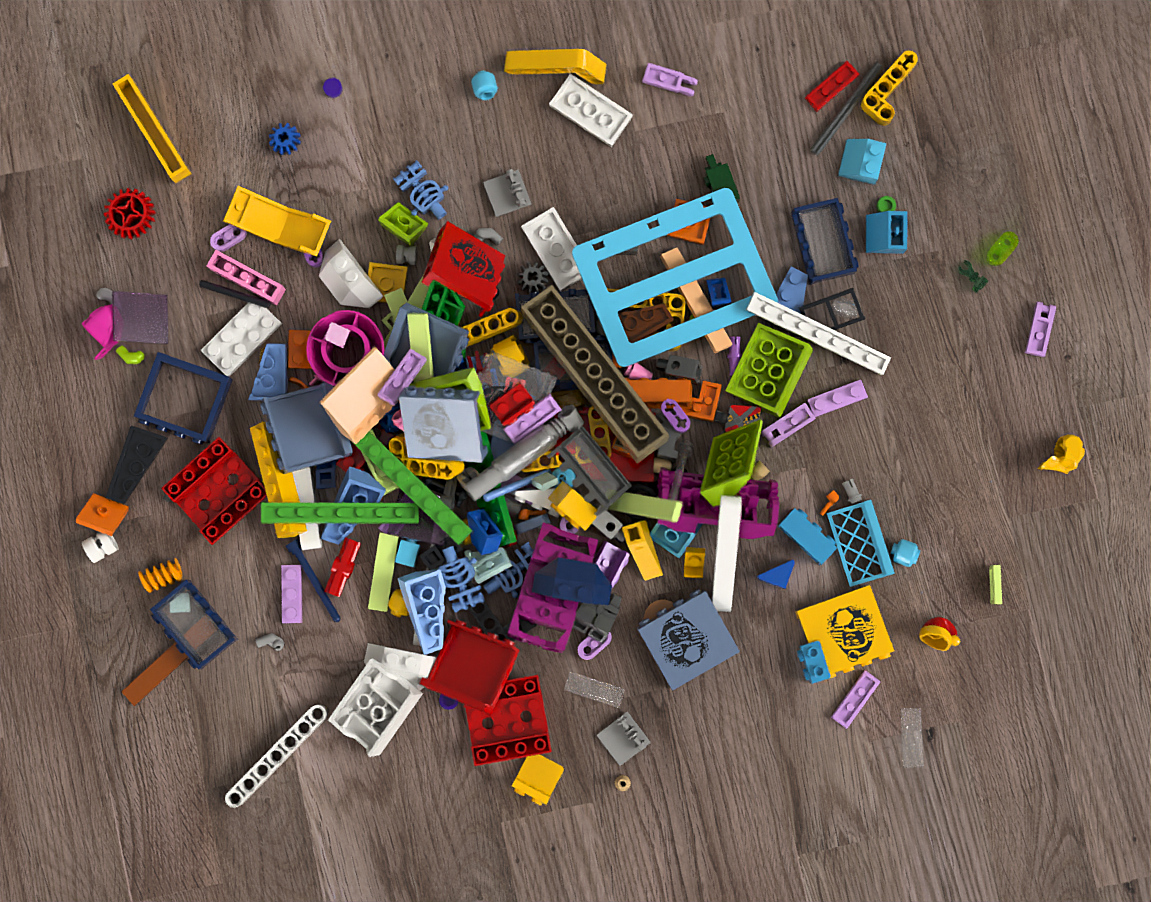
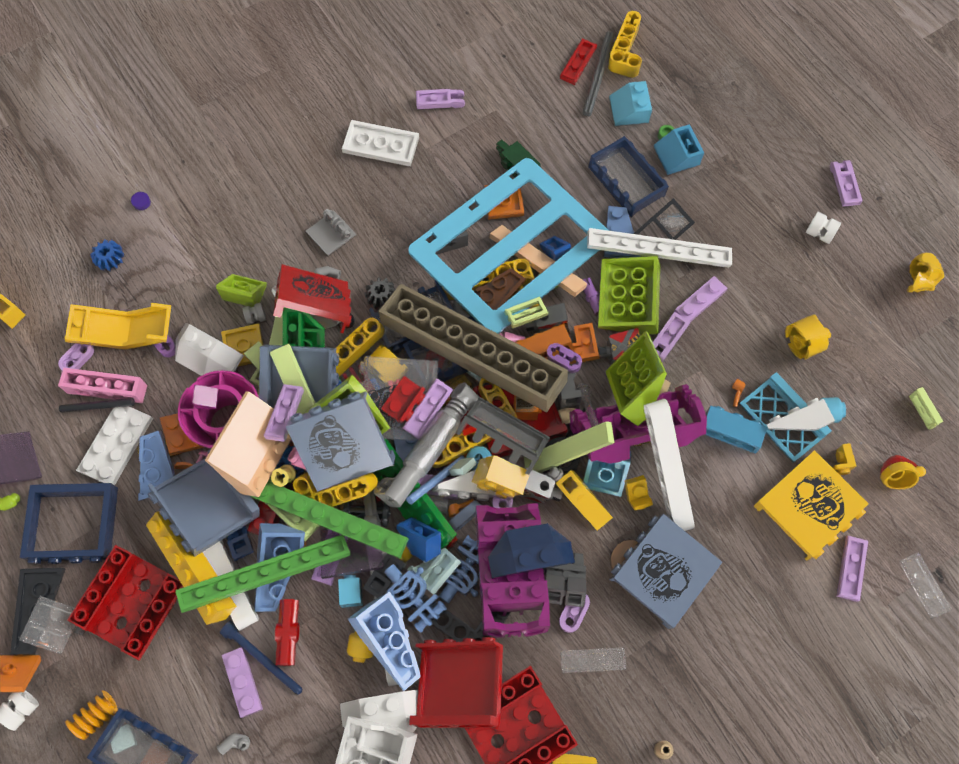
camera: 25 degrees left, 15 degrees down
(144, 485) = (48, 625): none -> clear slope
(383, 430) = (288, 471): none -> light yellow bush
(383, 572) = (331, 621): yellowish green tile -> none
(431, 202) = (259, 256): medium blue torso -> none
(447, 703) = (446, 735): dark purple tile -> none
(484, 85) = (278, 153): medium azure head -> none
(554, 247) = (391, 261): white plate -> none
(556, 61) = (334, 108): yellow beam -> none
(611, 561) = (559, 518): medium lavender bracket -> none
(623, 738) = (644, 701): light grey hinge -> none
(625, 518) = (555, 473): none -> light grey arm
(665, 356) = (511, 318): none -> yellowish green tile
(779, 575) = (724, 477): blue slope -> none
(814, 662) = (797, 545): dark azure bracket -> none
(852, 491) = (753, 374): light grey pin -> none
(875, 555) = (806, 419): none -> white slope
(897, 602) = (845, 457): none -> yellow bracket
(917, 477) = (807, 337): none -> yellow brick
(979, 283) = (775, 164): clear green piece -> none
(991, 370) = (816, 227): none -> white wheel
(1002, 249) = (780, 132): clear neon green plate -> none

